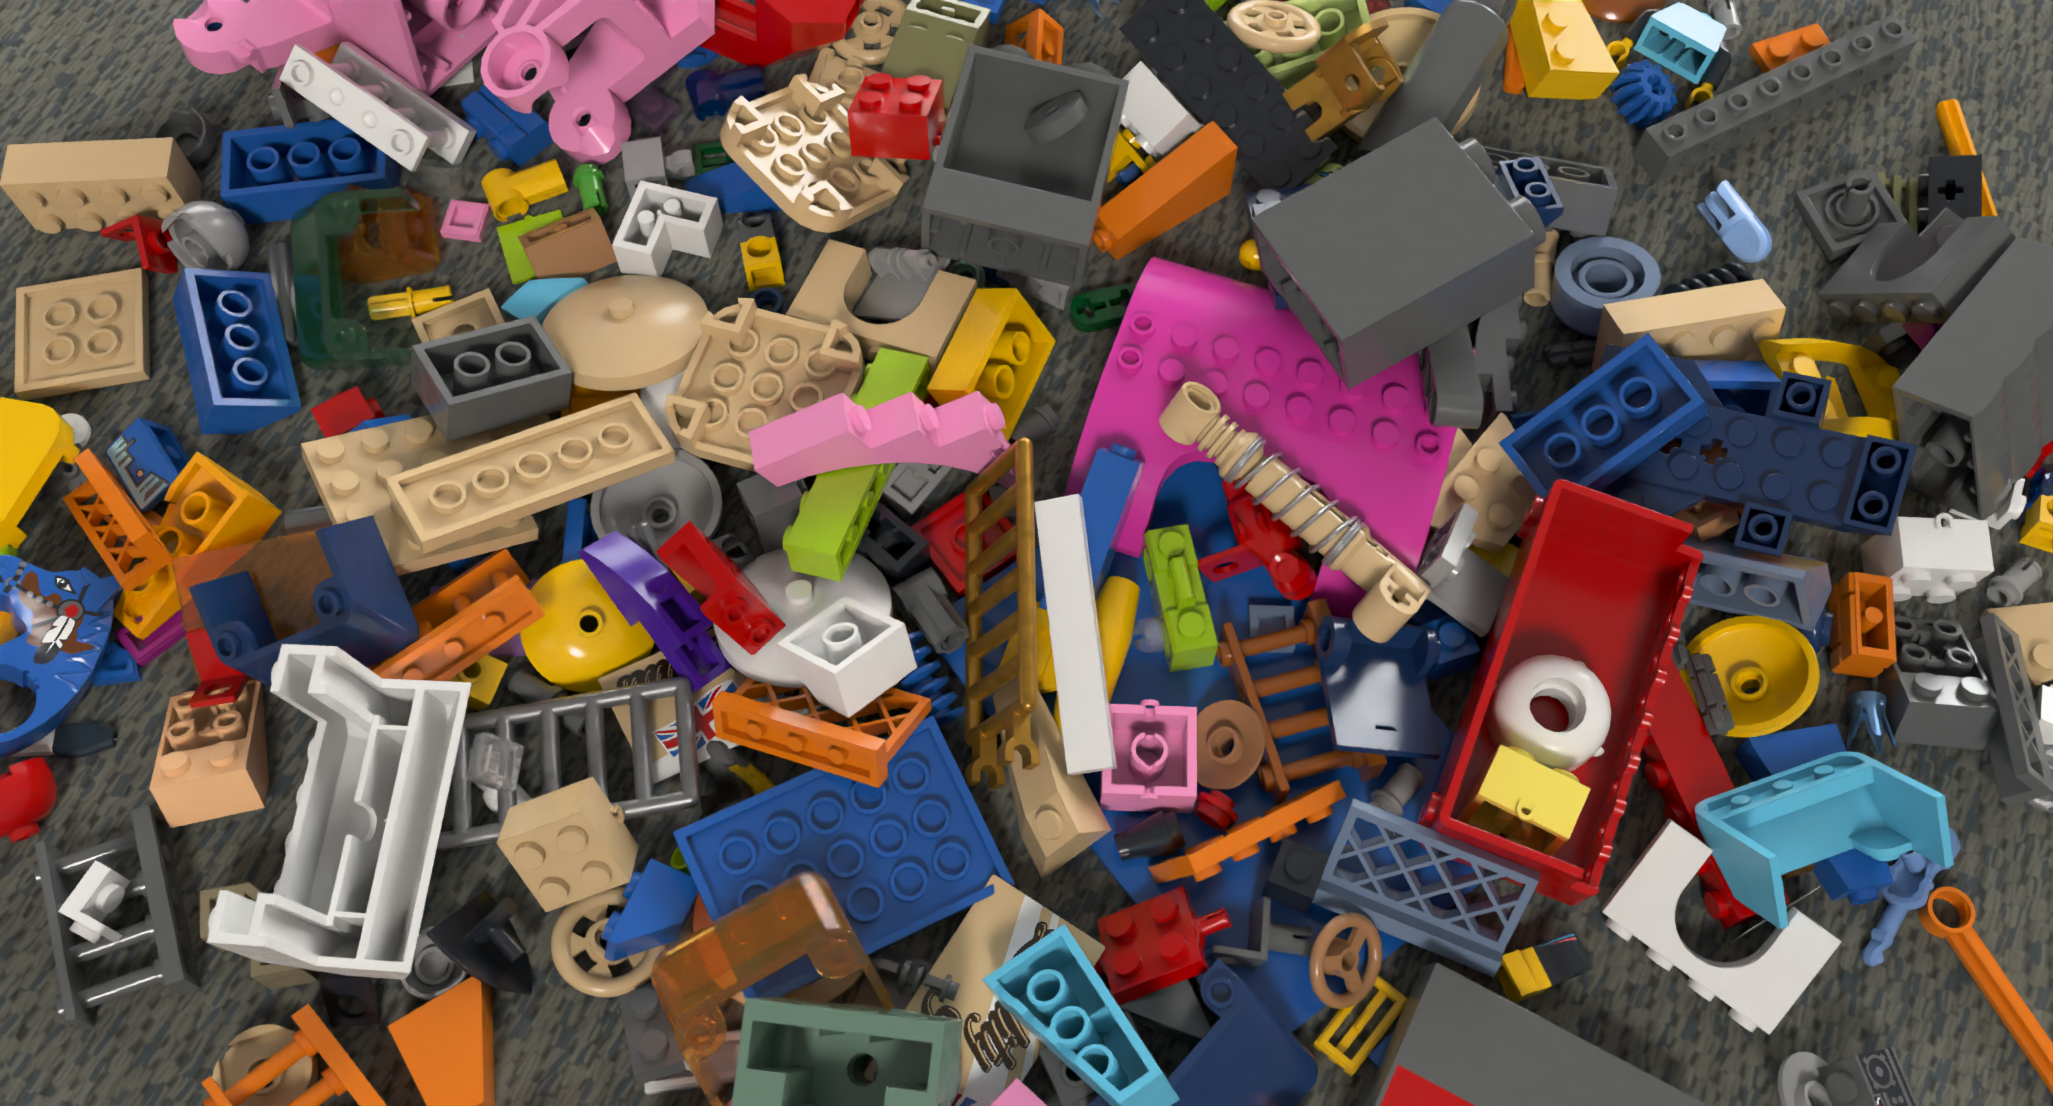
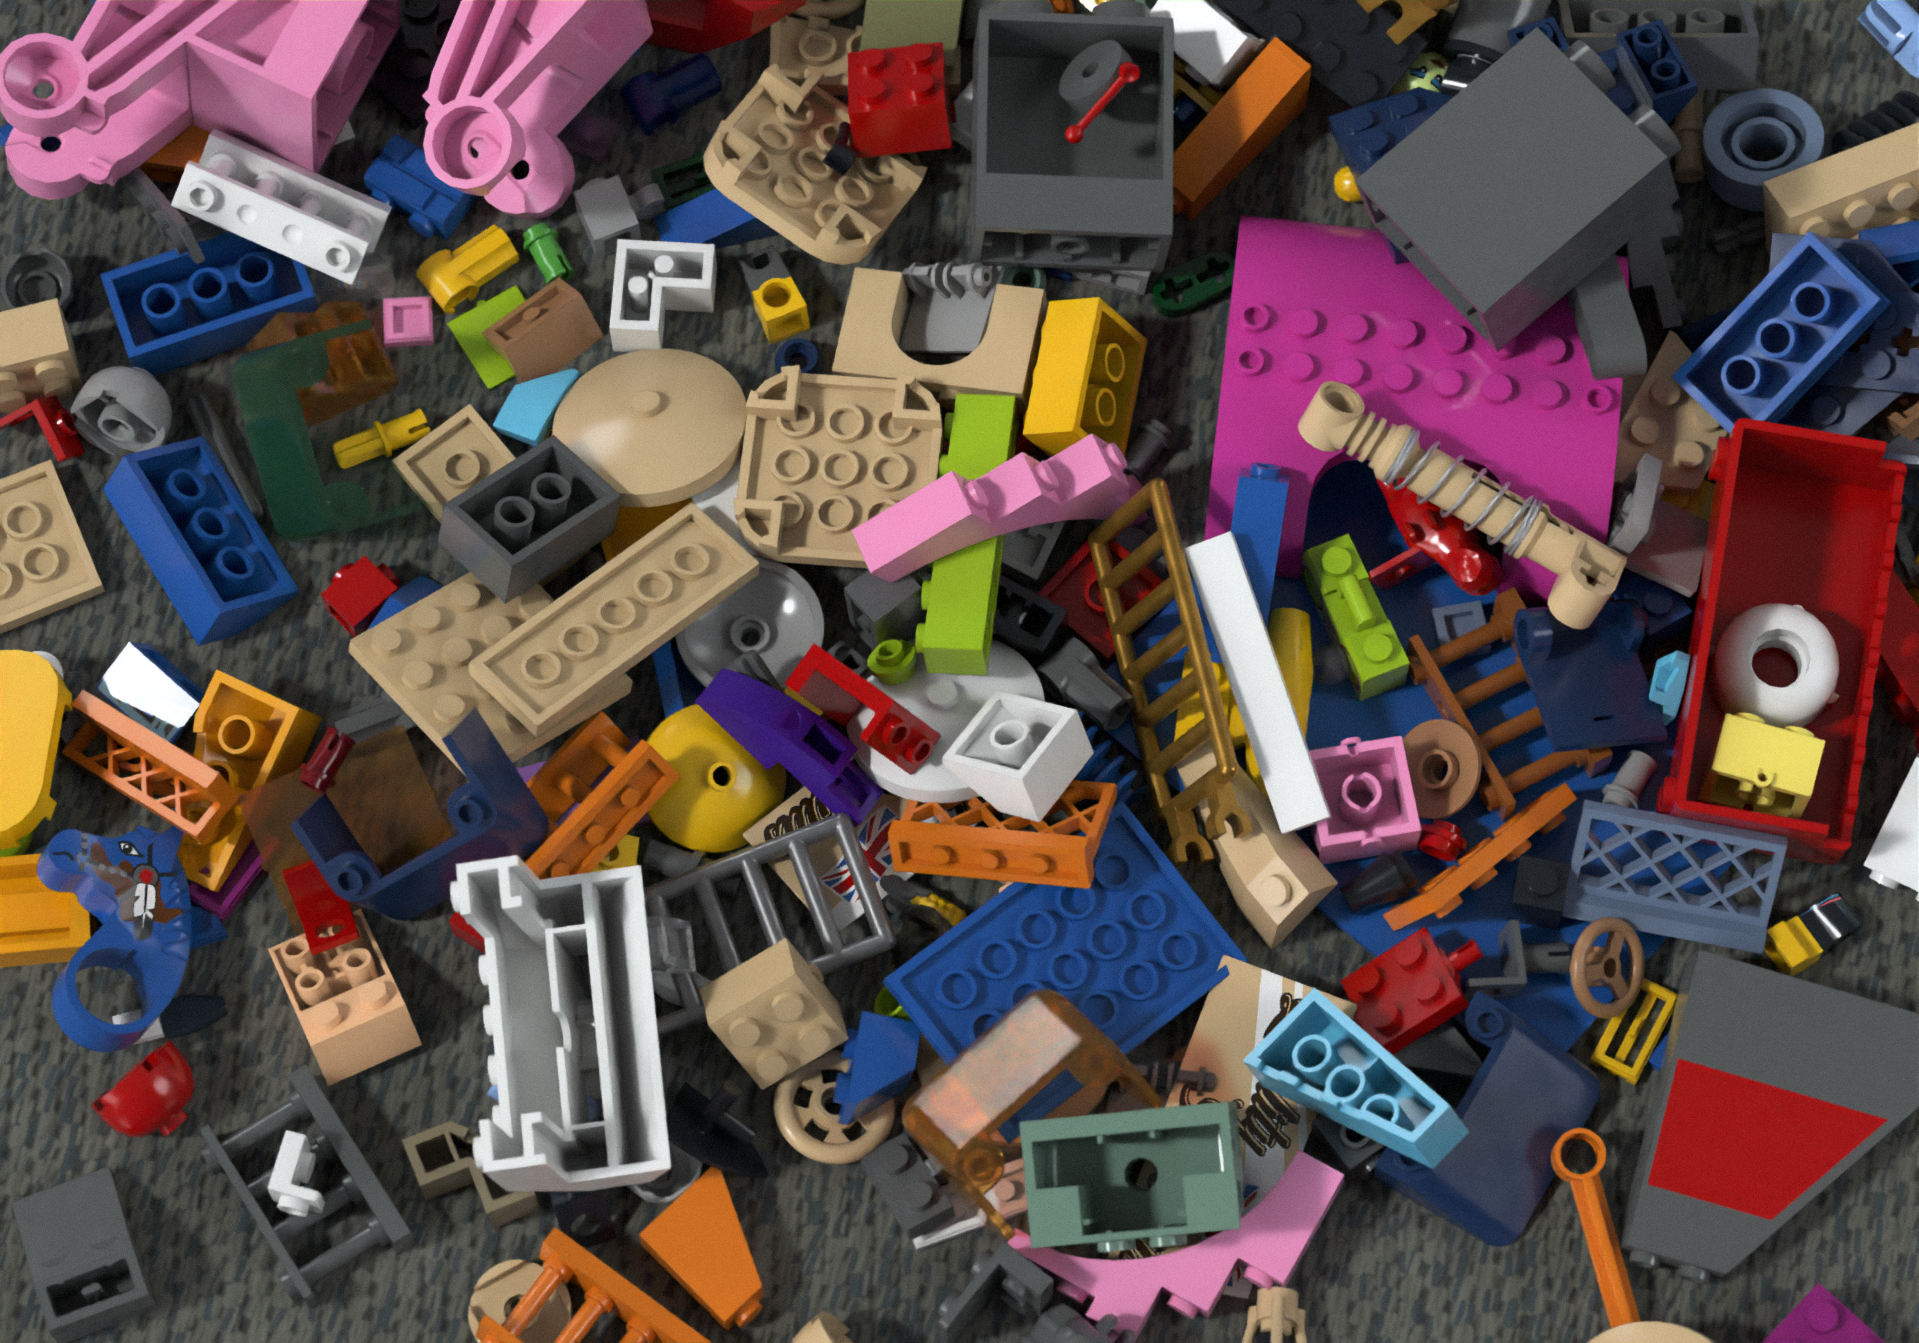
camera: 10 degrees left, 5 degrees up
(253, 543) = (326, 761): none -> dark red pin
(767, 557) = (893, 661): none -> lime plate
(839, 151) = (841, 155): none -> black hand
(1080, 113) = (1127, 74): none -> red hinge
(1450, 709) = (1669, 683): none -> medium azure slope

